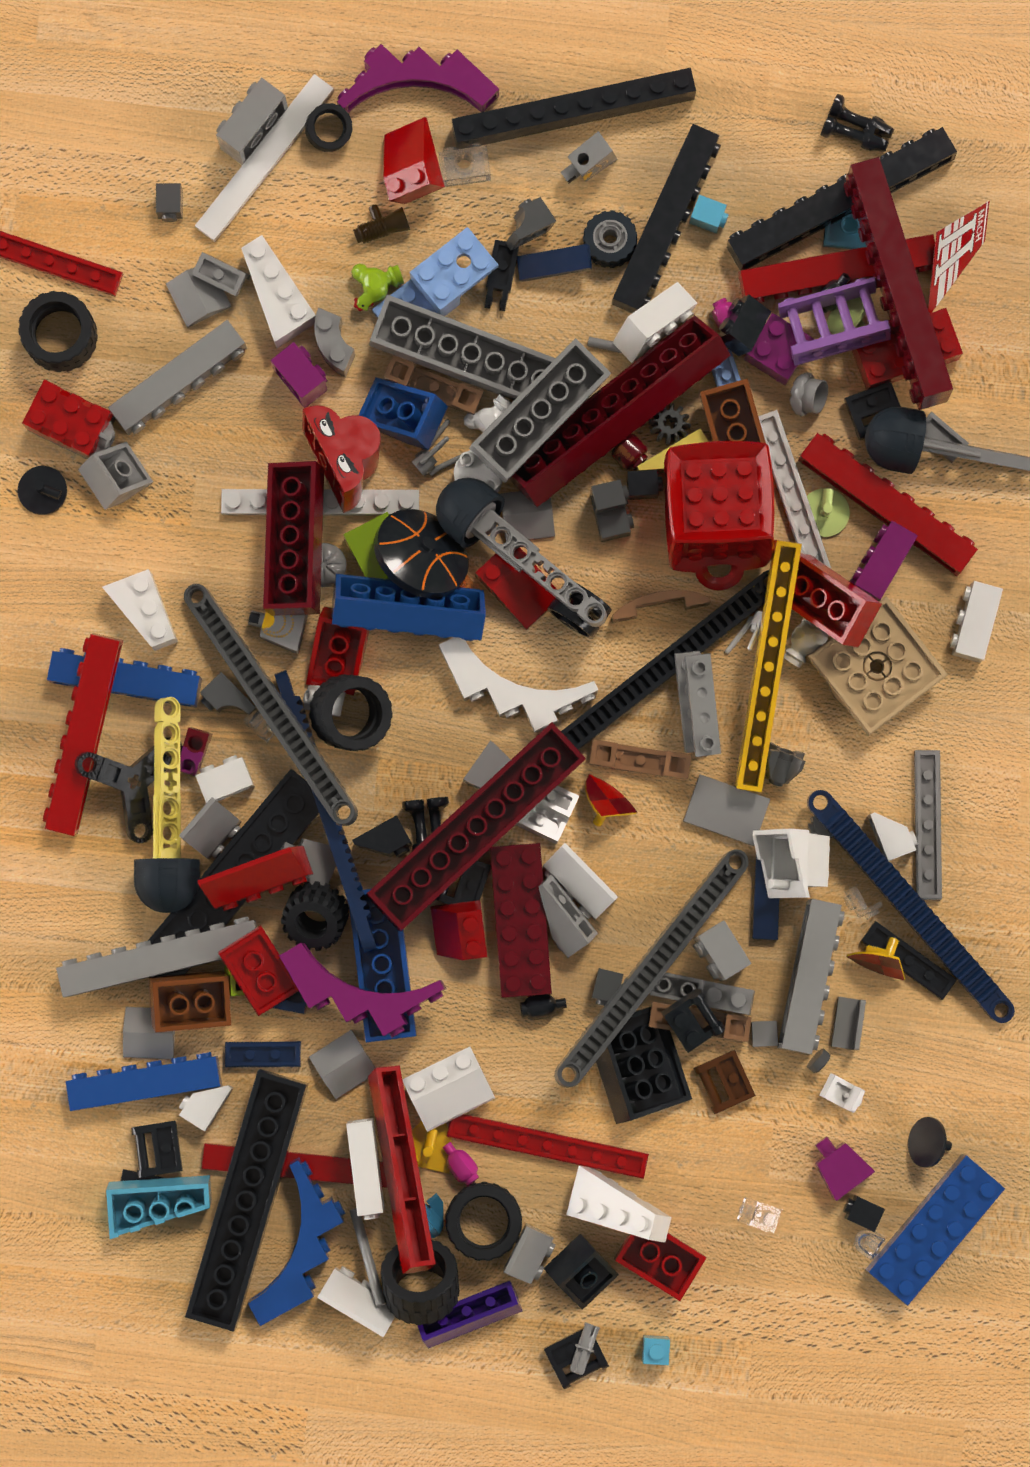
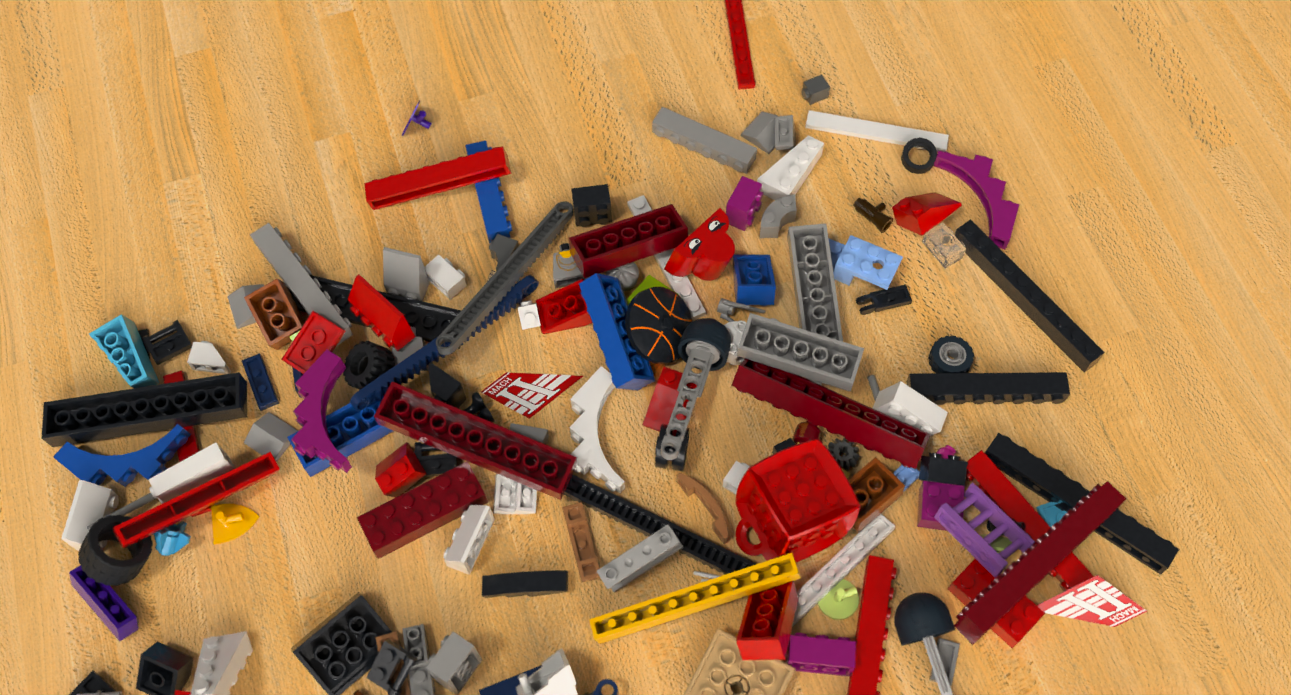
camera: 70 degrees right, 20 degrees down
(37, 311) = (696, 78): black tyre -> none
(42, 490) = (591, 100): black shield -> none
(70, 421) = (641, 91): red piece -> none
(115, 475) = (621, 131): light grey slope -> none
(134, 799) = (418, 207): black piece -> none
(143, 606) = (540, 182): white wedge -> none
(143, 1083) = (211, 314): blue brick -> none
(166, 880) = (356, 259): piece -> none
(194, 750) = (458, 249): leg -> none
(214, 560) = (591, 205): none -> black brick
(251, 120) = (895, 107): light grey brick -> none
(375, 284) = (834, 225): lime animal -> none
(379, 712) = (502, 321): black tyre -> none
(422, 742) = (527, 391): none -> sticker
(448, 1089) = (275, 512): white slope -> none
(454, 395) = (783, 301): medium nougat slope -> none
(461, 1165) = (221, 548): dark pink plant -> none
(473, 1250) = (164, 564): black tyre -> none
(527, 518) = (721, 393): light grey slope -> none
(529, 1253) = (164, 624): light grey slope -> none
(531, 222) = (931, 302): dark grey arch -> none
(541, 1006) = (363, 553): black plant -> none
(548, 1145) = (258, 608): red tile -> none
(554, 262) = (912, 328): dark blue tile -> none
(565, 920) = (435, 538): light grey slope -> none
(594, 150) = (999, 318): light grey torso -> none
(606, 800) = (539, 530): shield -> none
(606, 985) = (396, 594): dark grey brick -> none
(609, 510) = (759, 438): dark grey brick -> none
(644, 552) = (734, 476): none -> white brick
(651, 968) = (419, 615): dark grey gear -> none
(659, 841) = (525, 583): none -> black slope
(709, 214) = (1009, 414): medium azure brick -> none
(726, 809) = (571, 624): light grey tile -> none
(783, 764) = (626, 649): dark grey brick -> none
(804, 641) = (728, 622): white animal -> none
(808, 394) = (919, 542): light grey piece -> none
(870, 127) = (1143, 502): black piece -> none
(870, 403) = (938, 588): black plate -> none

